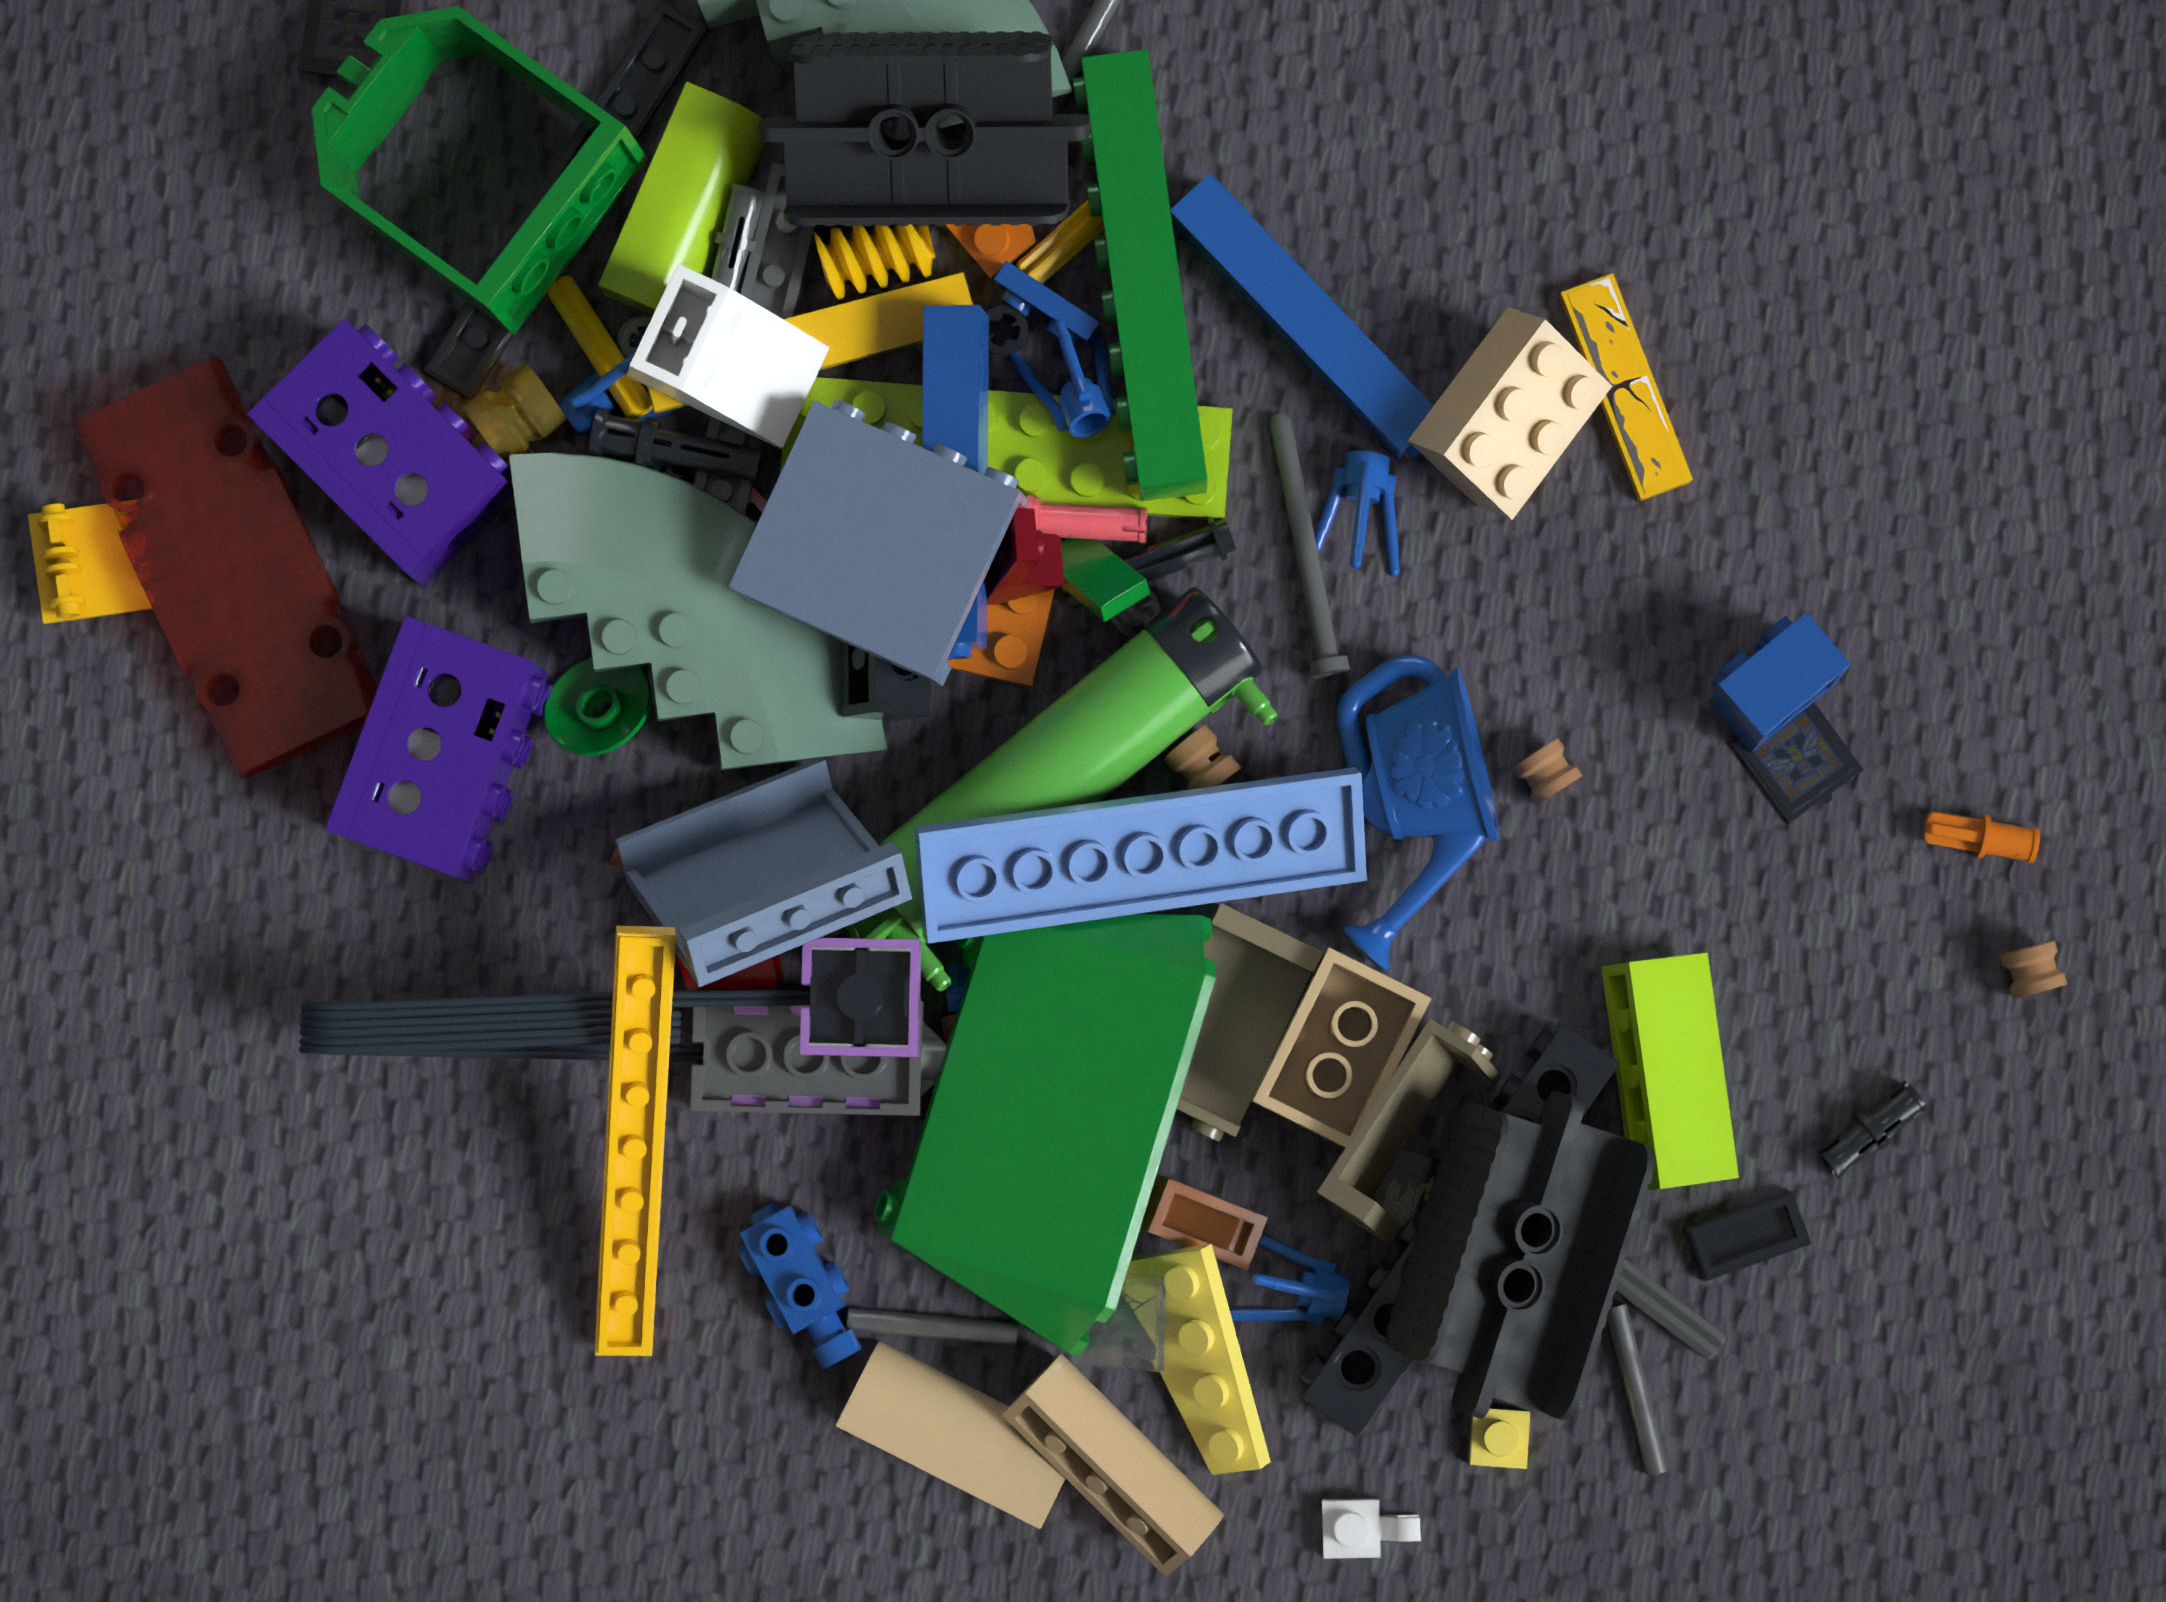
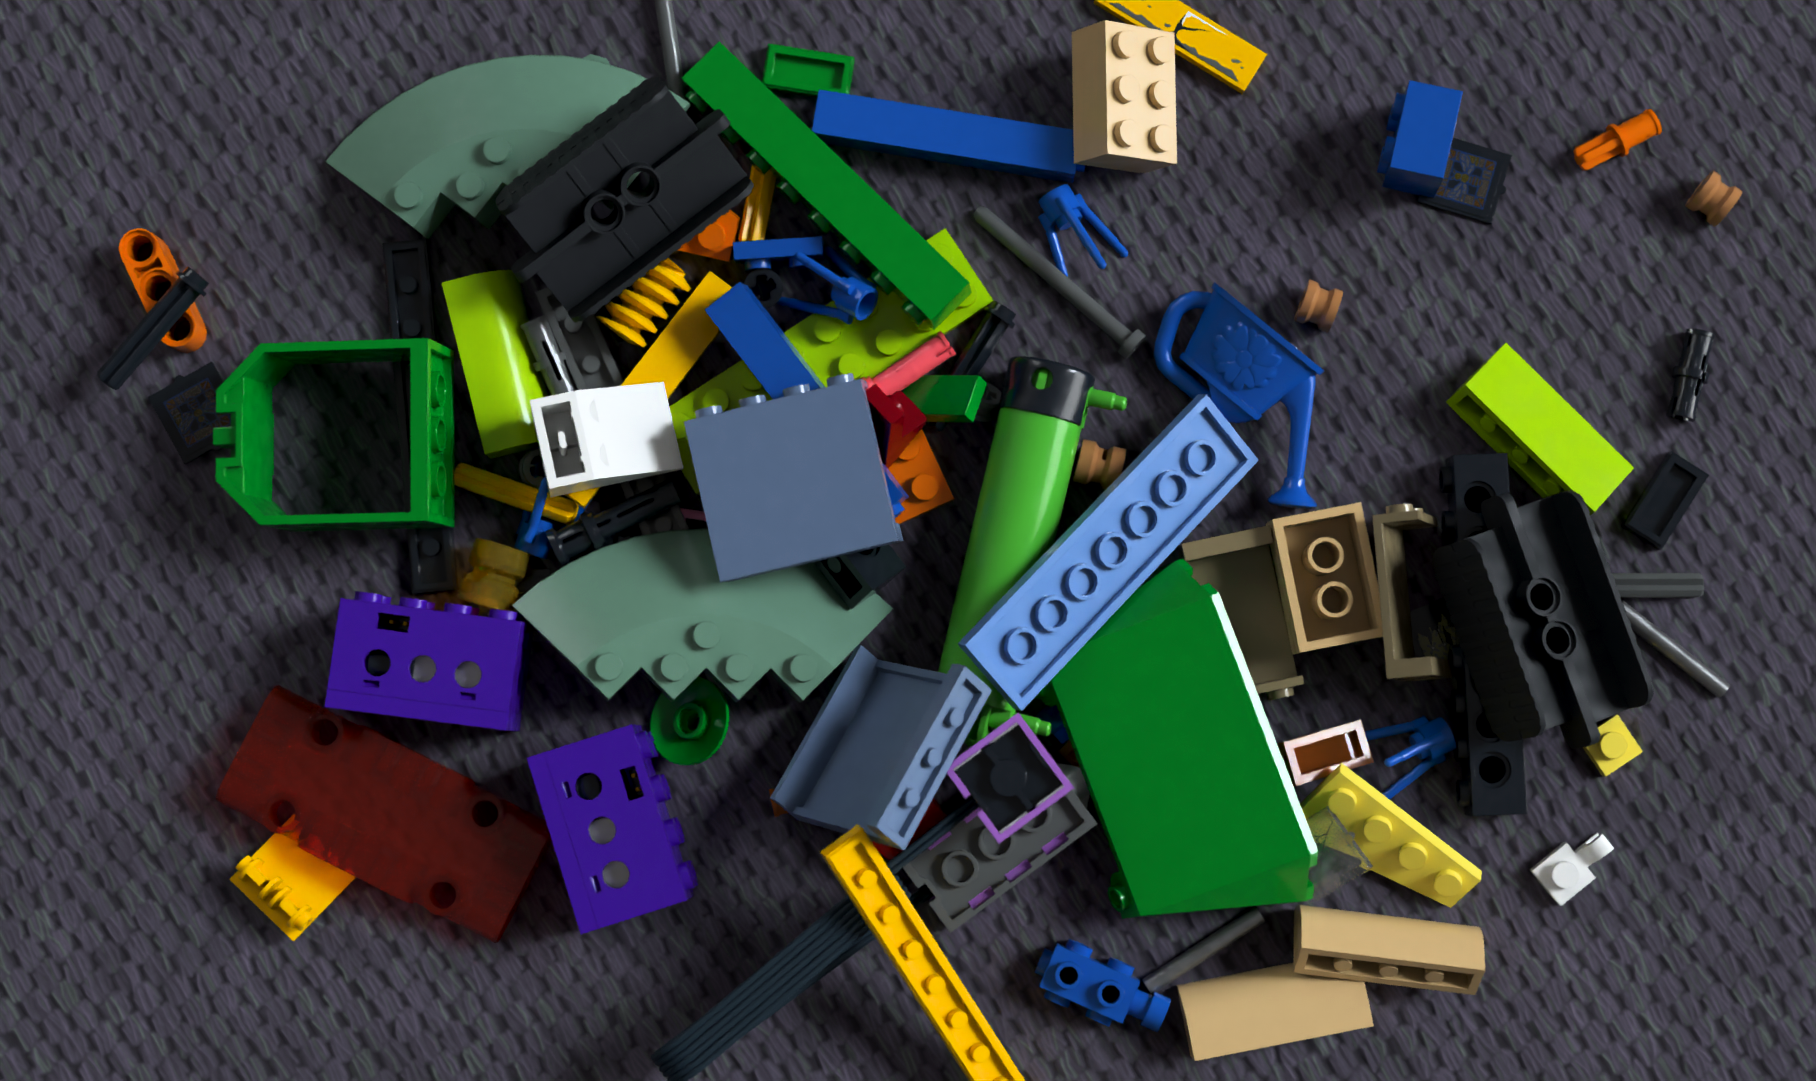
camera: 35 degrees left, 0 degrees up
(1216, 146) = (806, 71): none -> green tile

